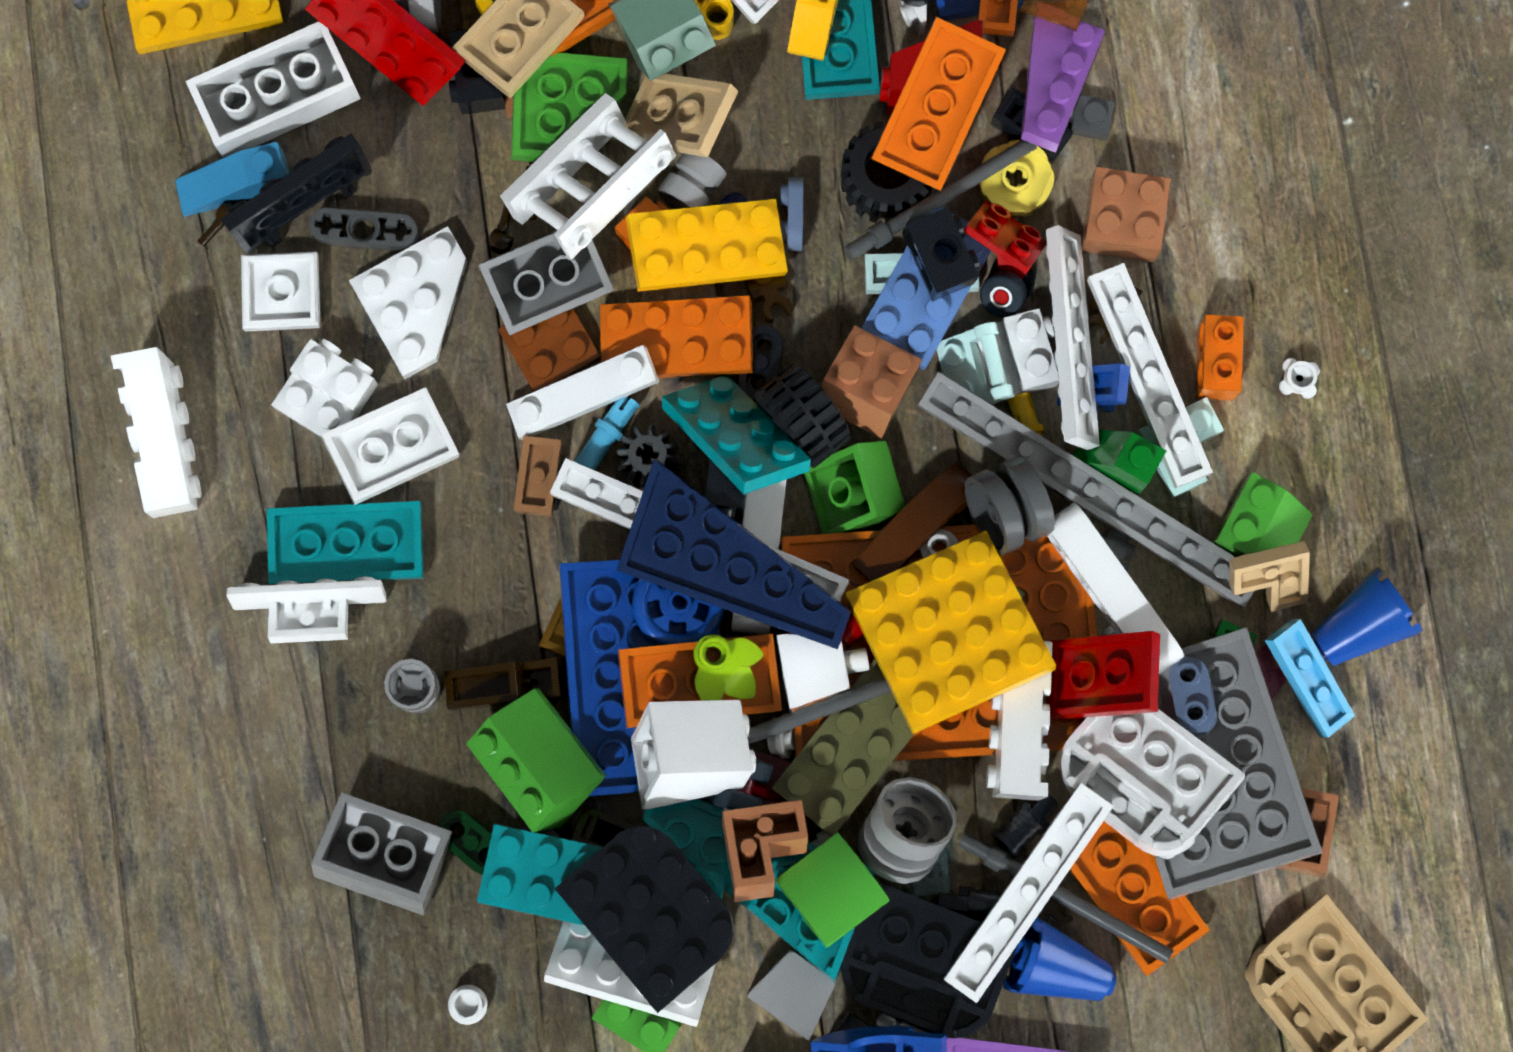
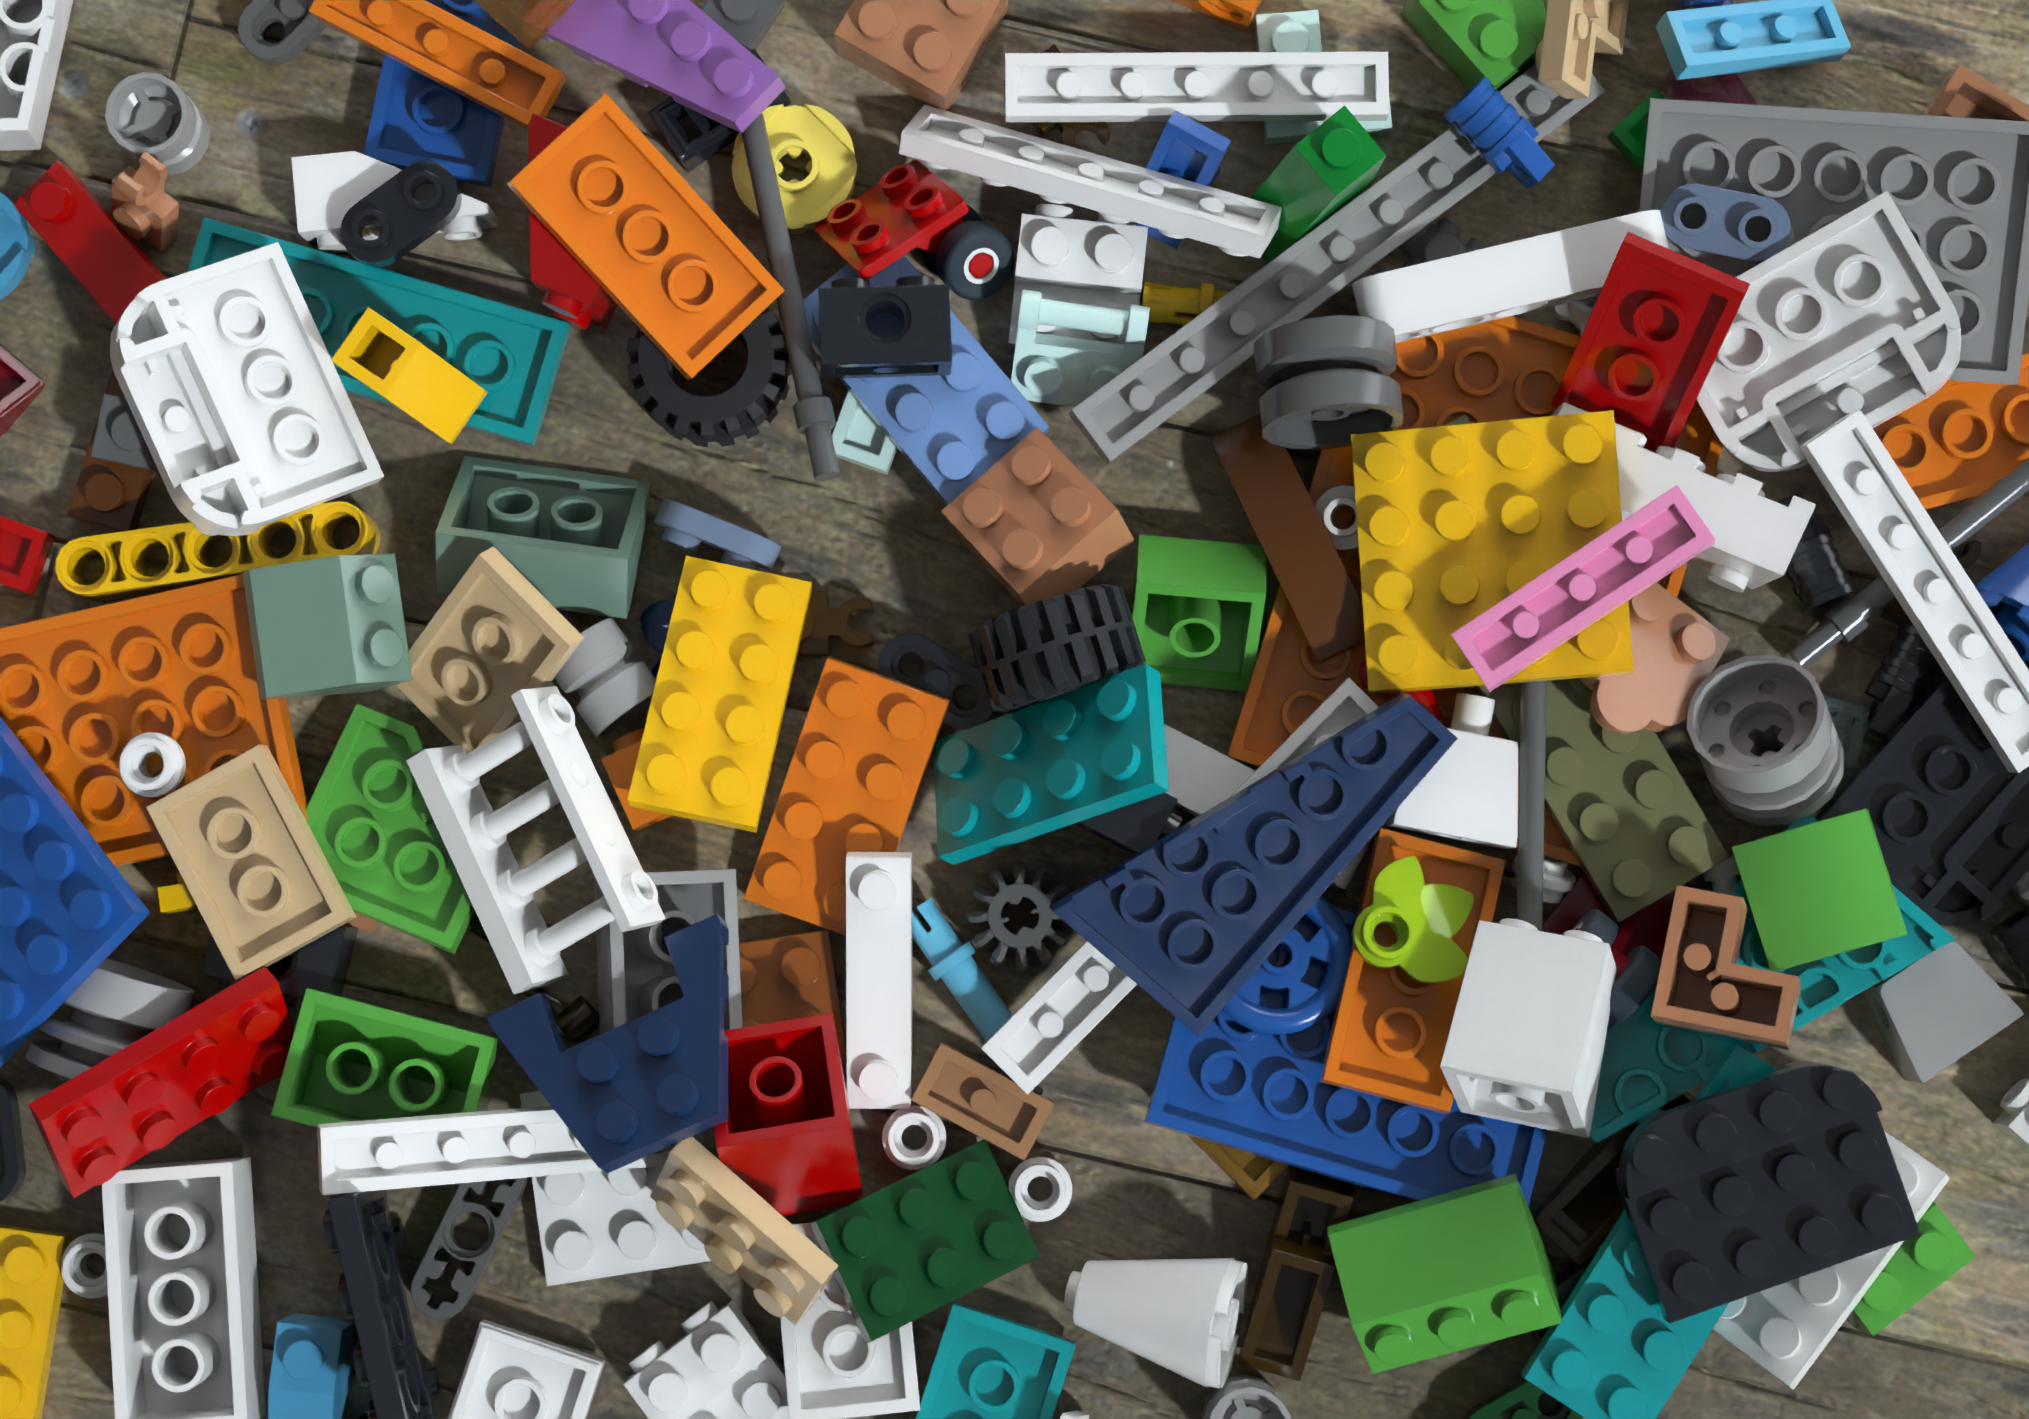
camera: 70 degrees left, 5 degrees up
(269, 30) = (75, 1269): none -> white plate
(416, 364) = (741, 1231): none -> tan plate
(420, 228) = (457, 1150): none -> white plate
(429, 150) = (379, 1064): none -> bright green slope
(449, 471) = (925, 1241): none -> dark green plate
(459, 619) = (1165, 1310): none -> white cone
(481, 279) = (643, 1079): none -> dark blue wing
(486, 366) = (790, 1116): none -> red slope
(495, 516) = (1040, 1209): none -> white plate
(497, 437) = (914, 1158): none -> white plate
(762, 129) = (560, 528): none -> sand green slope
(932, 754) = (1670, 659): none -> nougat plate
(946, 680) = (1583, 588): none -> bright pink plate
(1192, 551) = (1499, 133): none -> blue hinge

